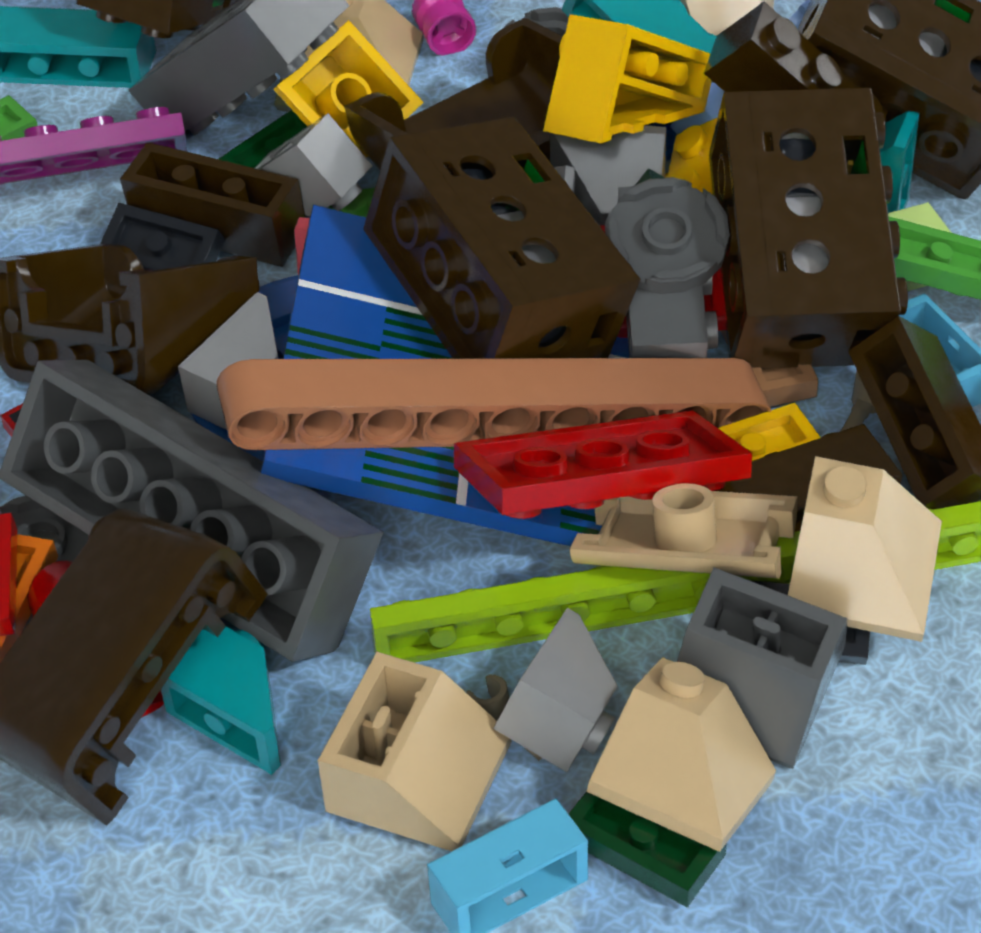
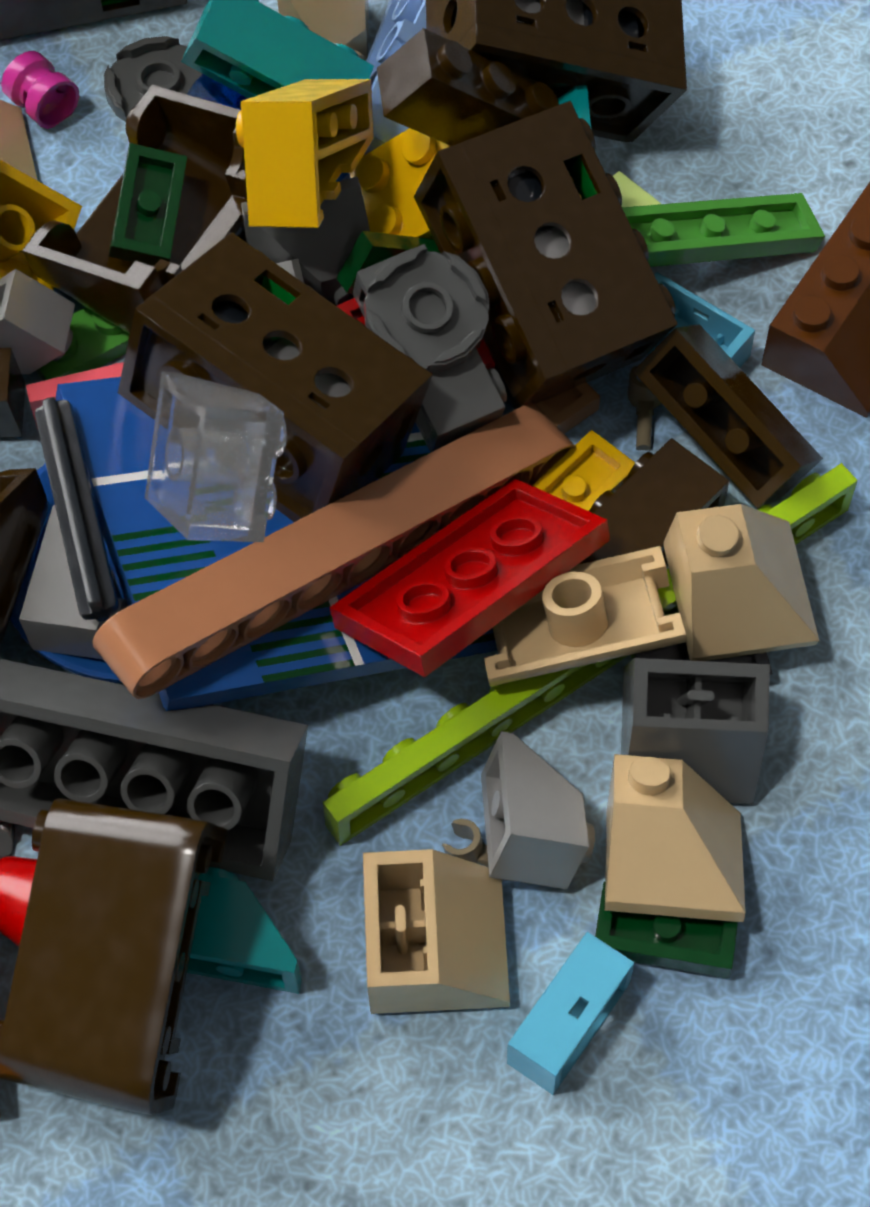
camera: 25 degrees left, 15 degrees up
(273, 287) = (76, 510): none -> black axle
(403, 279) = (214, 459): none -> clear slope
(482, 96) = (147, 205): none -> dark green plate

